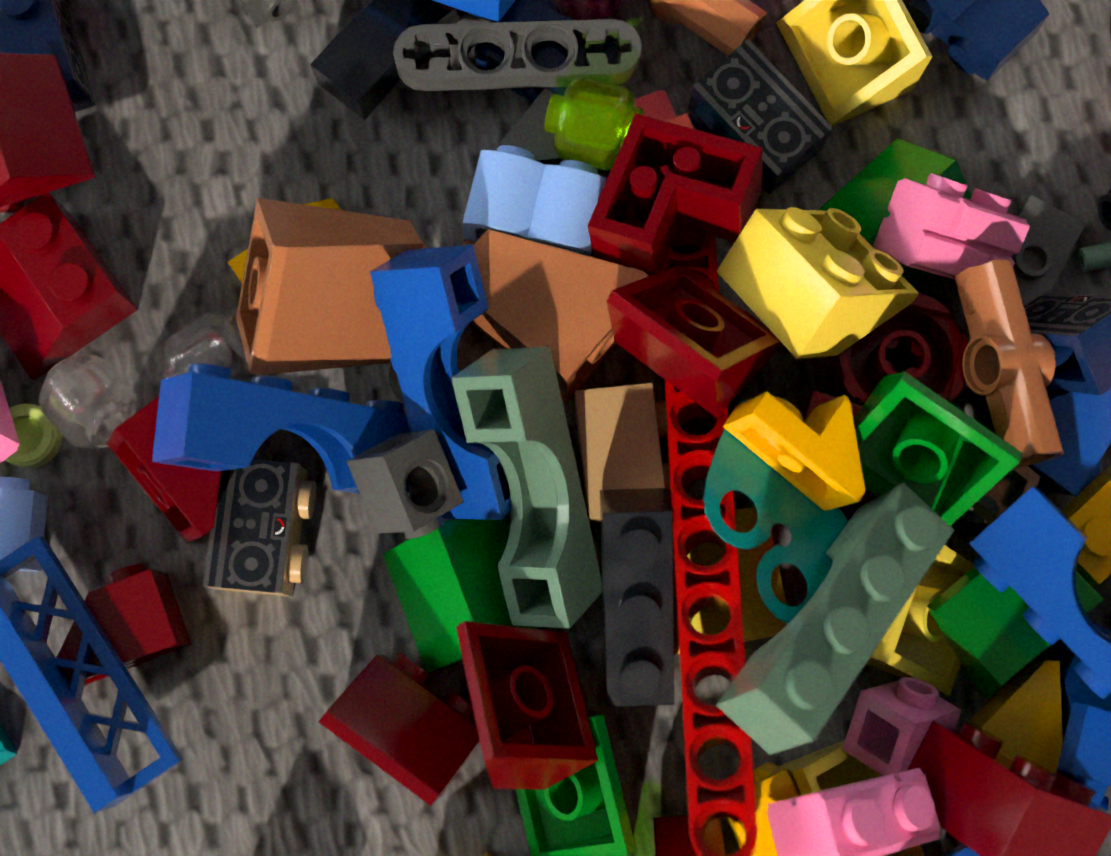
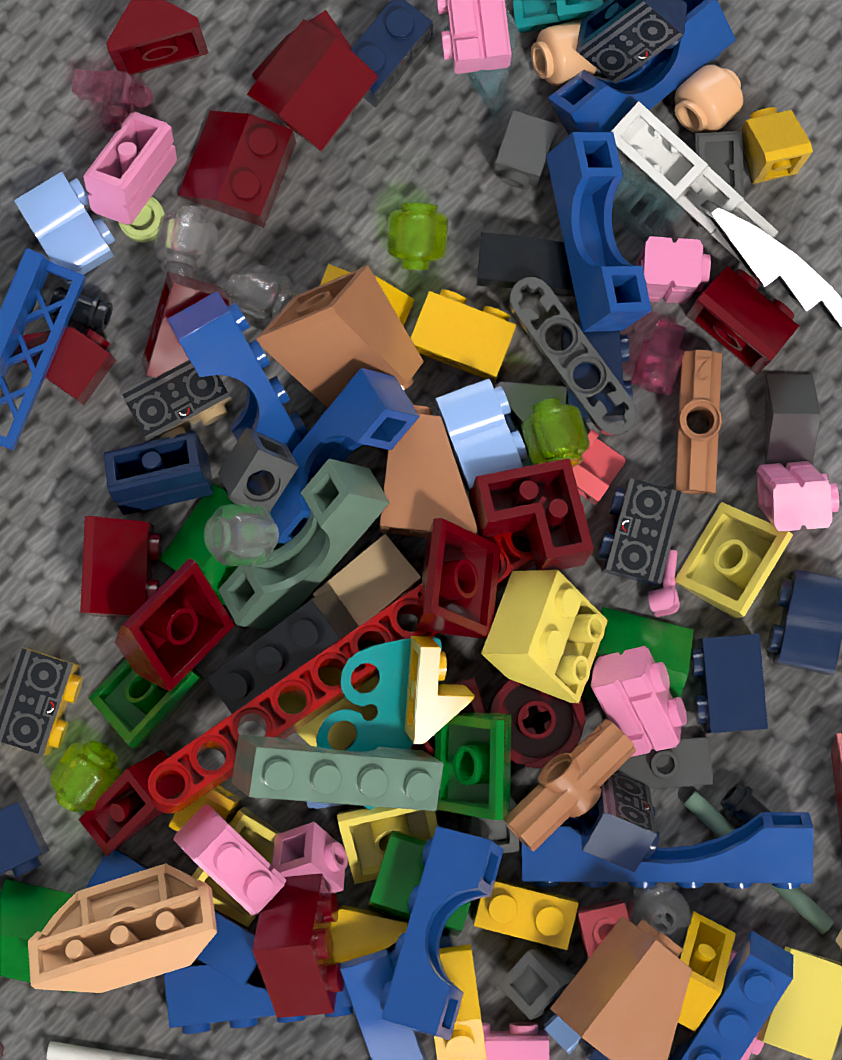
camera: 55 degrees right, 5 degrees up
(89, 562) = (88, 310): none -> black pin
(264, 144) = (417, 235): none -> clear neon green head
(327, 606) = (158, 473): none -> dark blue brick
(410, 164) = (463, 335): none -> yellow brick
(467, 551) = (241, 535): none -> clear head
(846, 145) = (666, 600): none -> bright pink hand
(990, 131) = (730, 683): none -> dark blue brick

